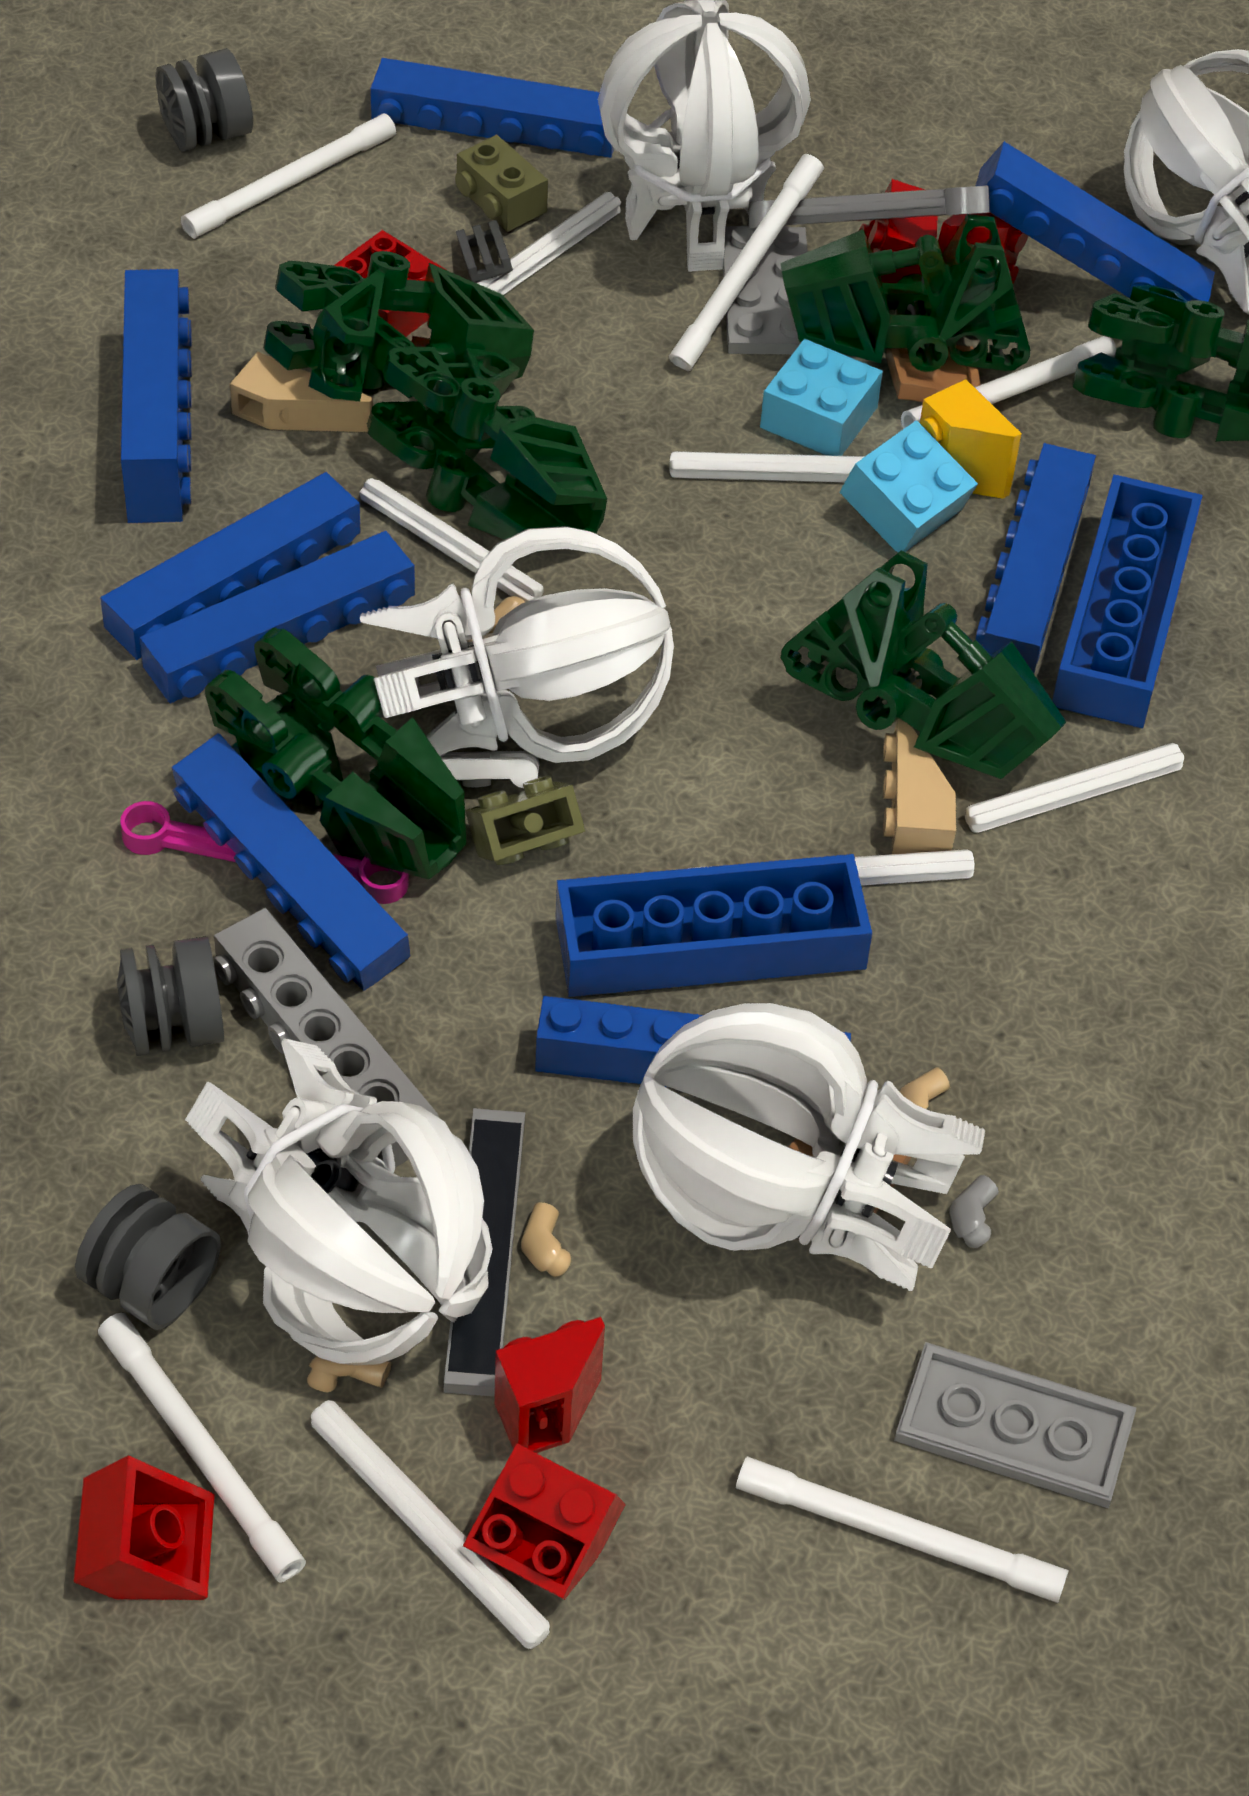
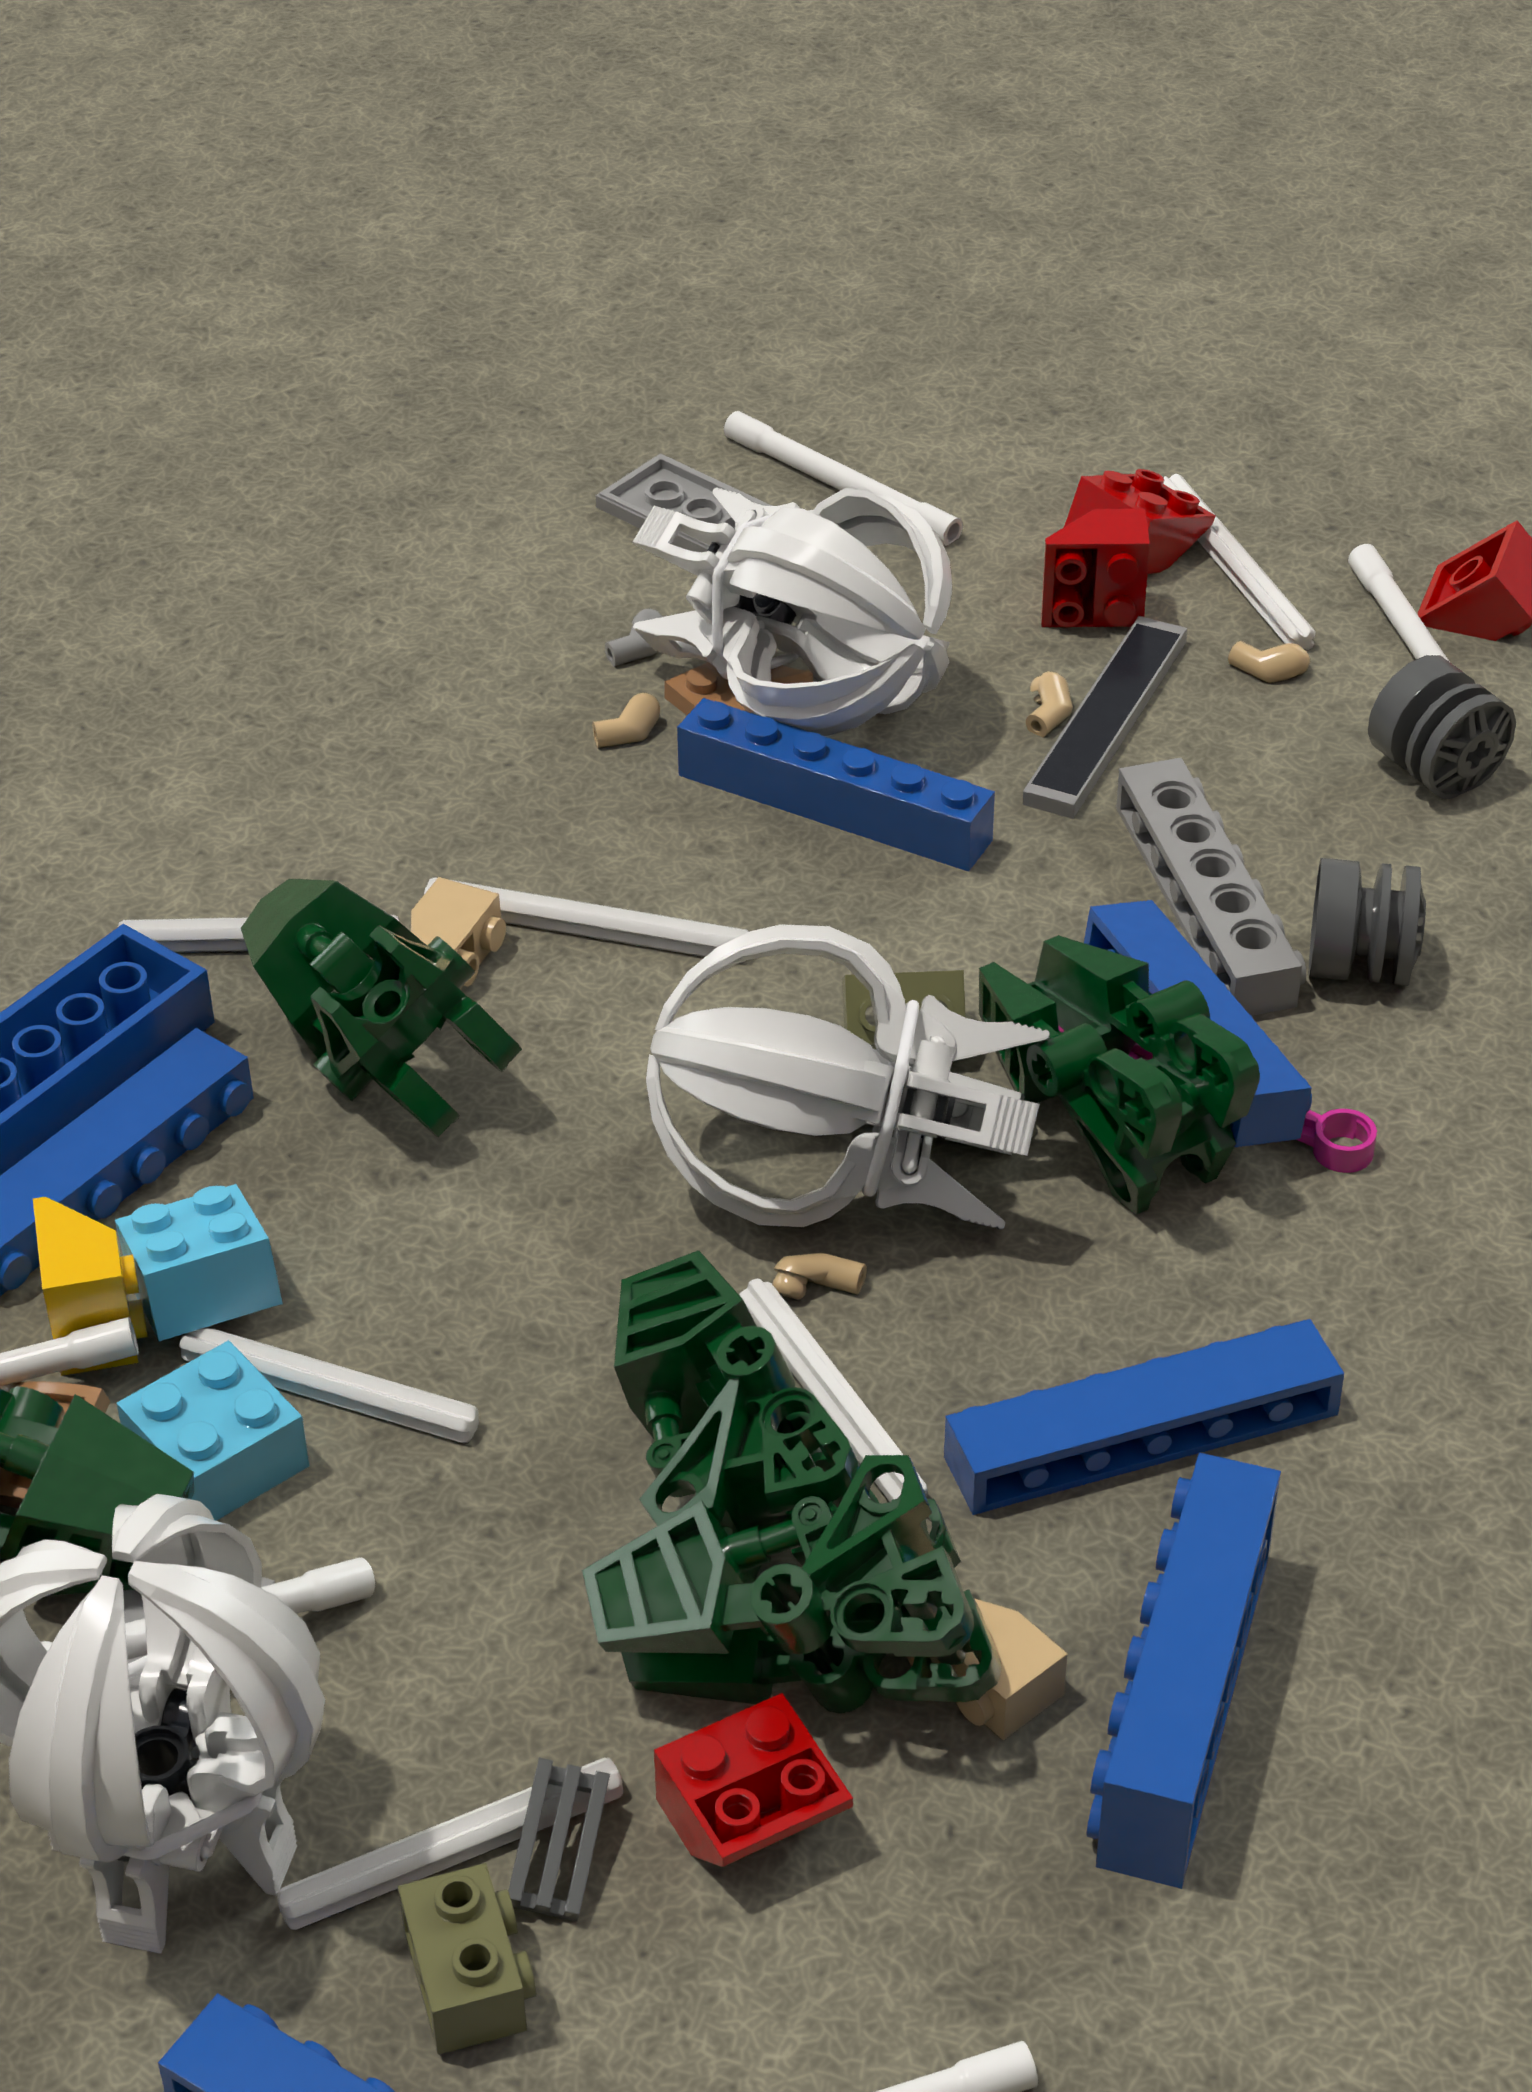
camera: 155 degrees left, 10 degrees down
(303, 602) = (1091, 1328): blue brick -> none
(305, 1194) = (1283, 650): white piece -> none
(712, 925) = (752, 865): blue brick -> none

